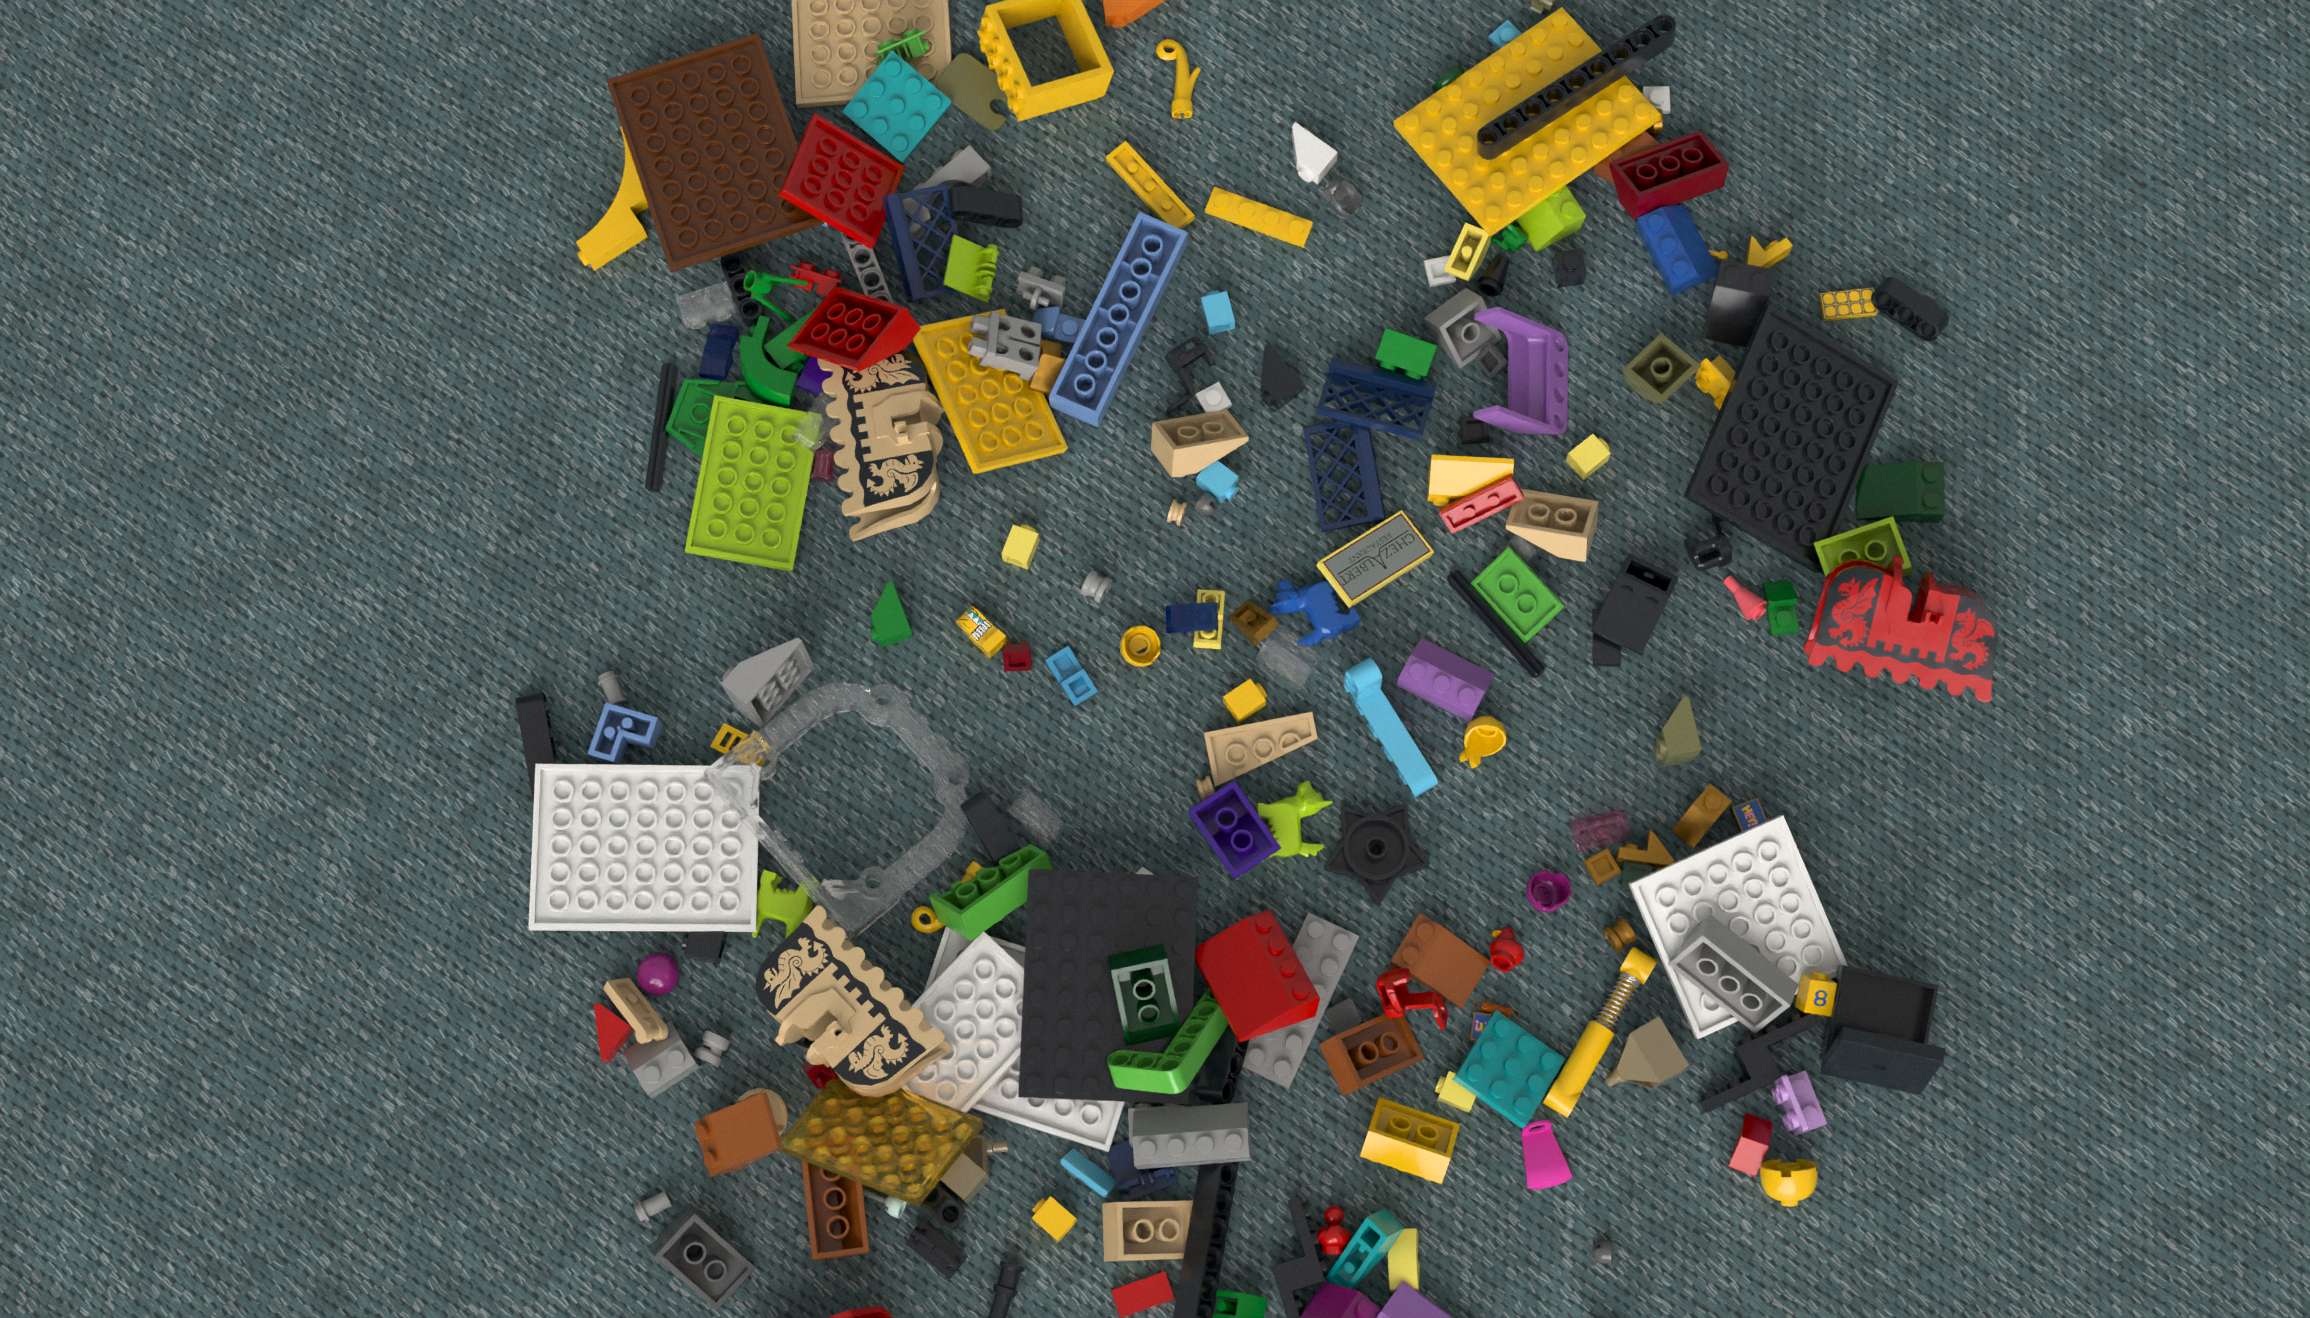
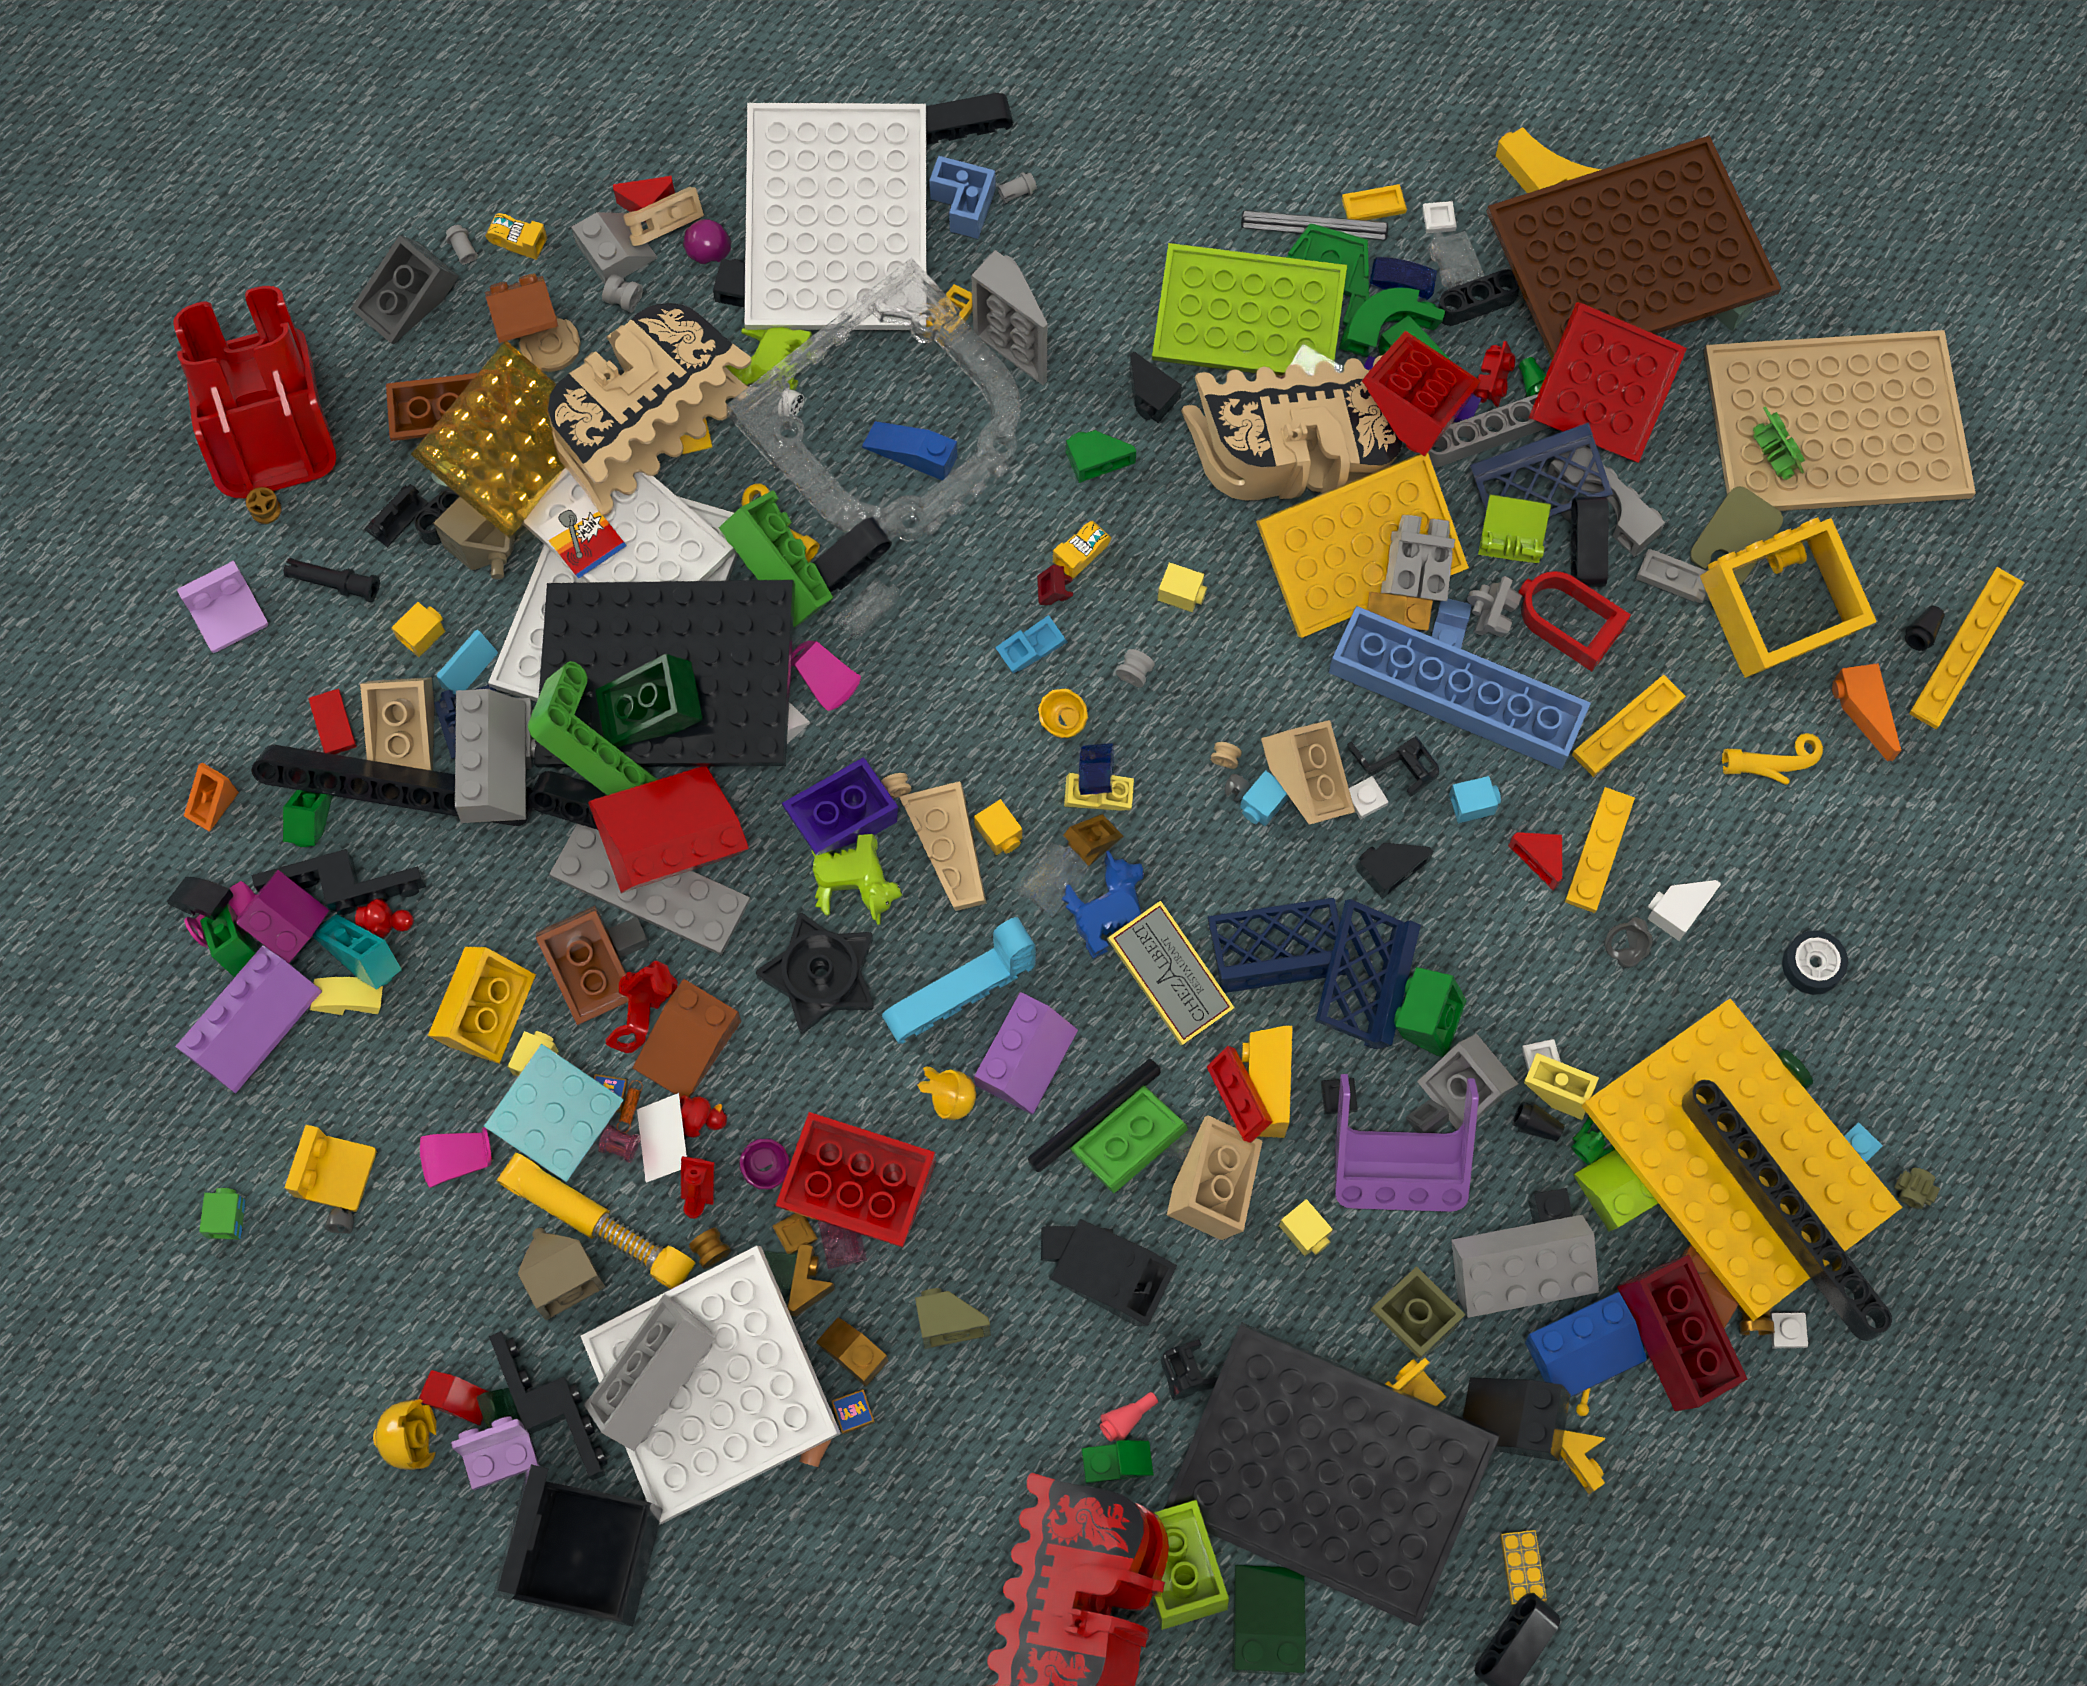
camera: 85 degrees right, 5 degrees down
(640, 375) = (1374, 203): none -> yellow tile
(645, 1153) = (517, 235): none -> yellow leg
(656, 320) = (1439, 217): none -> white tile
(761, 284) = (1480, 306): green plant -> none
(825, 245) = (1532, 376): none -> green cone
(825, 570) = (1152, 389): none -> black slope
(878, 780) = (913, 447): none -> blue slope
(897, 106) = (1708, 447): teal plate -> none
(971, 1068) = (582, 536): none -> sticker
(1013, 145) = (1673, 576): none -> light grey hinge
(1071, 200) = (1586, 656): none -> red window
(1100, 851) = (825, 674): none -> dark pink piece
(1268, 259) = (1541, 854): none -> red slope
(1350, 46) = (1831, 960): none -> wheel
(1527, 977) = (661, 1137): none -> white sticker
(1531, 1014) = (607, 1143): none -> clear pink bush
(1561, 1260) = (330, 1170): none -> yellow bracket
(1563, 812) = (856, 1179): none -> red slope
(1569, 945) = (696, 1185): none -> red hinge
(1618, 287) = (1525, 1266): none -> light grey brick
(1760, 1104) = (497, 1405): none -> clear green plate
(1816, 993) = (624, 1476): yellow brick -> none

